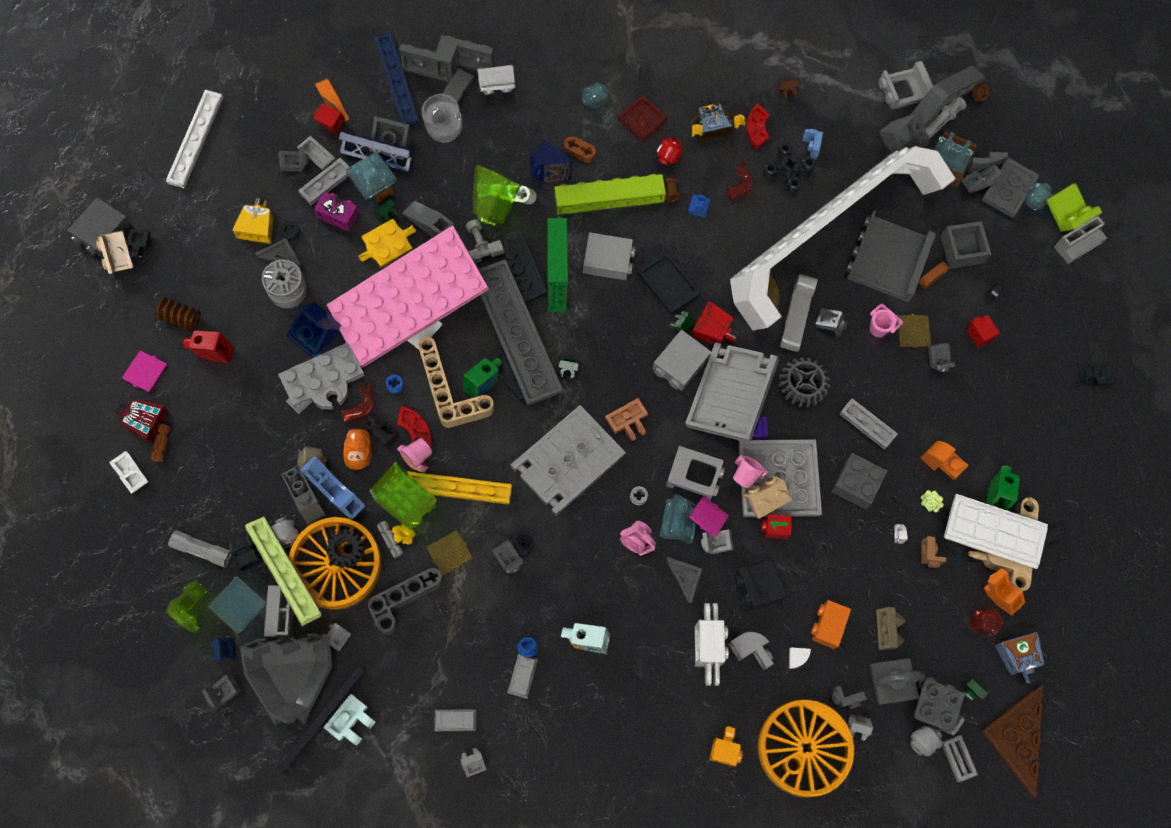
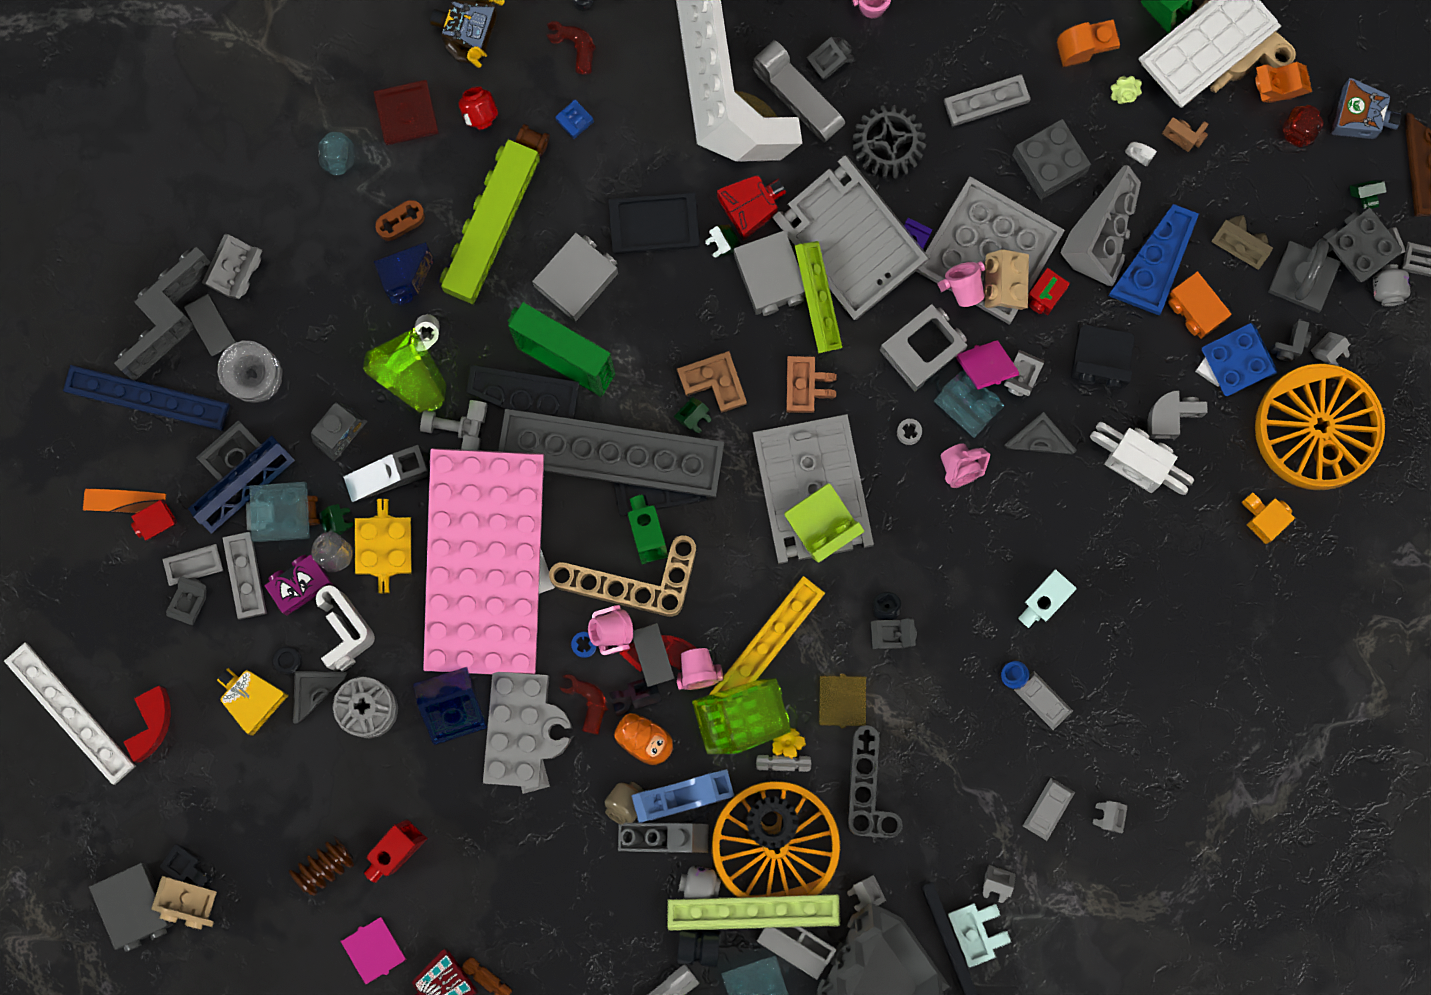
camera: 50 degrees left, 10 degrees up
(217, 181) = (157, 713): none -> red brick
(326, 248) = (343, 655): none -> white piece
(365, 216) = (331, 551): none -> clear head
(389, 714) = (999, 882): none -> light grey tile
(409, 423) = (652, 654): none -> dark grey slope
(411, 391) = (611, 629): none -> bright pink piece
(439, 180) = (337, 429): none -> dark grey torso
(549, 472) = (823, 523): none -> lime bracket
(601, 366) = (714, 373): none -> medium nougat plate
(684, 393) = (818, 296): none -> lime tile
(815, 670) = (1239, 359): none -> blue bracket
(834, 538) = (1099, 235): none -> light grey wedge
(838, 583) = (1155, 266): none -> blue wing

